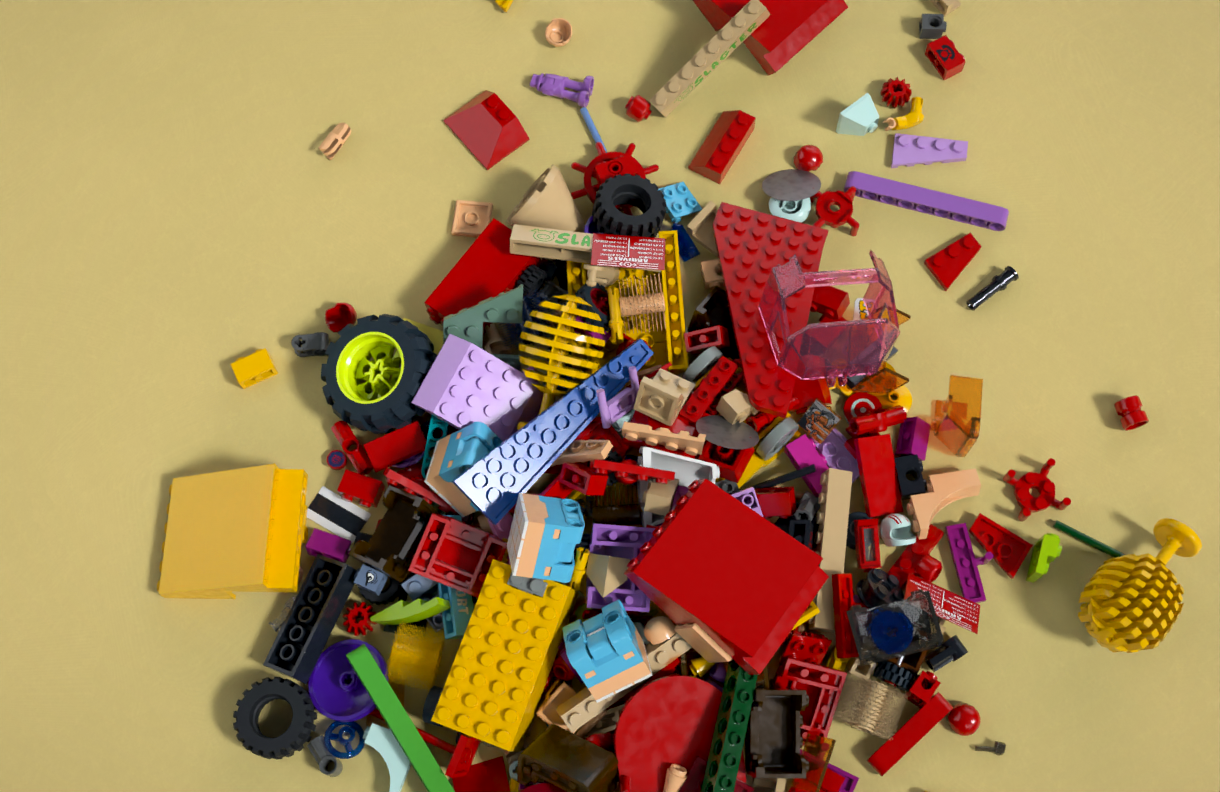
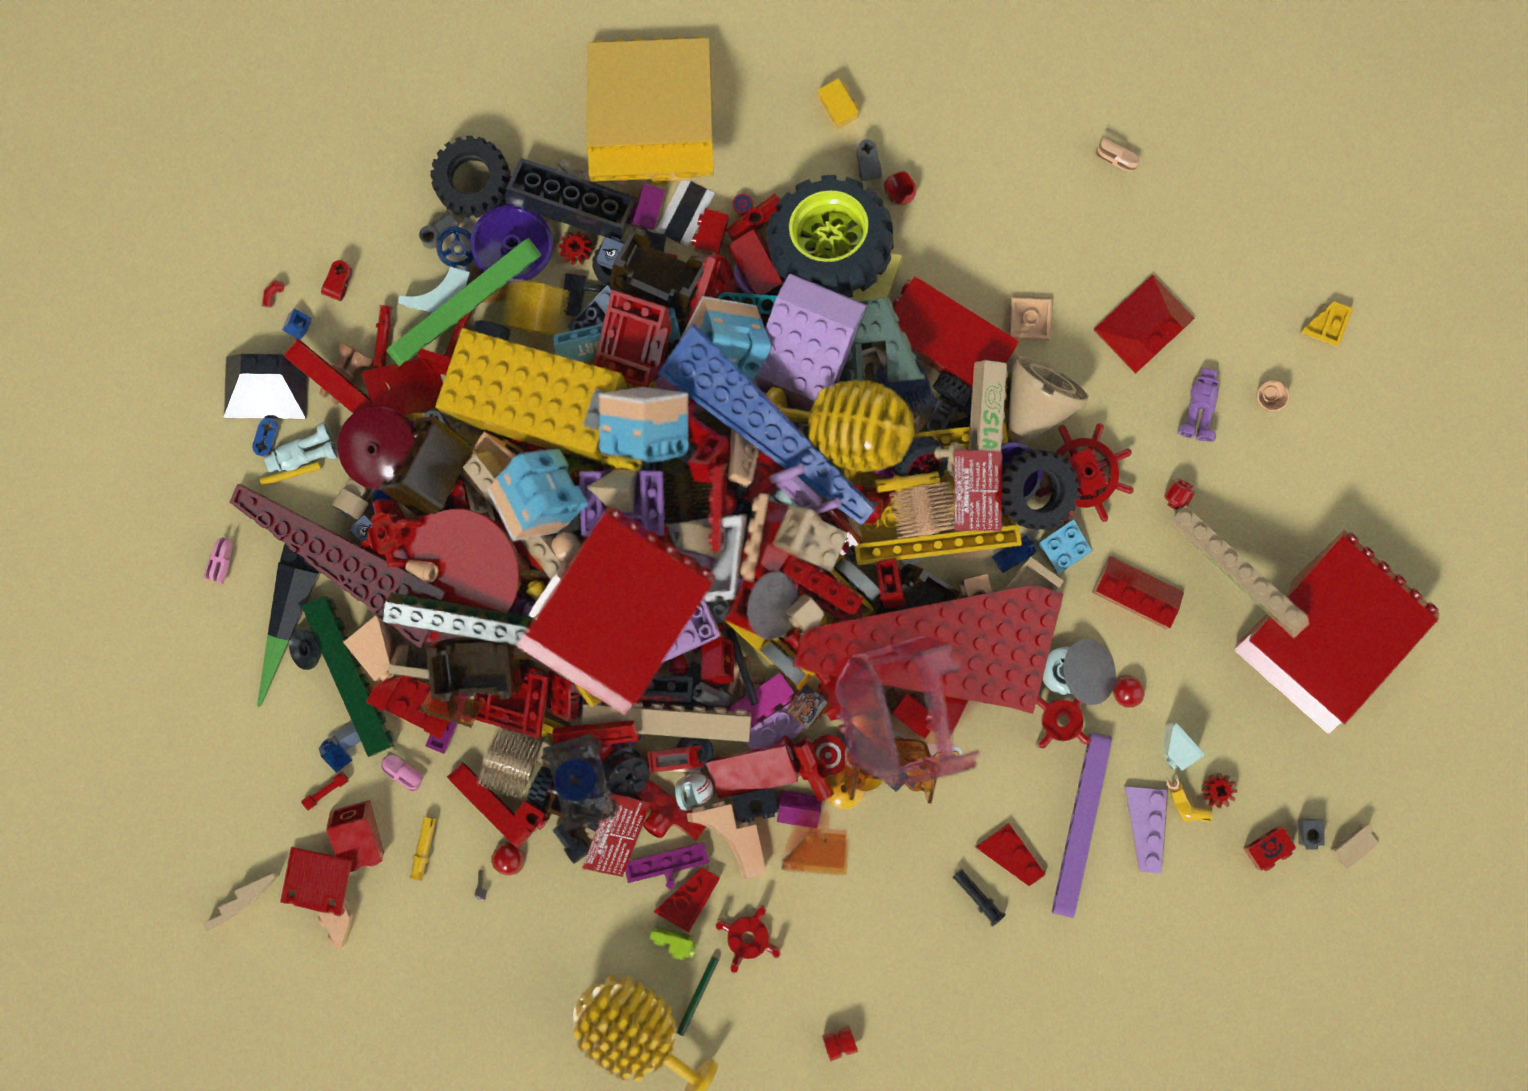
camera: 85 degrees right, 15 degrees up
(411, 612) = (579, 296): lime slope -> none
(591, 126) = (1152, 444): medium blue bar -> none
(797, 485) = (755, 679): none -> nougat piece

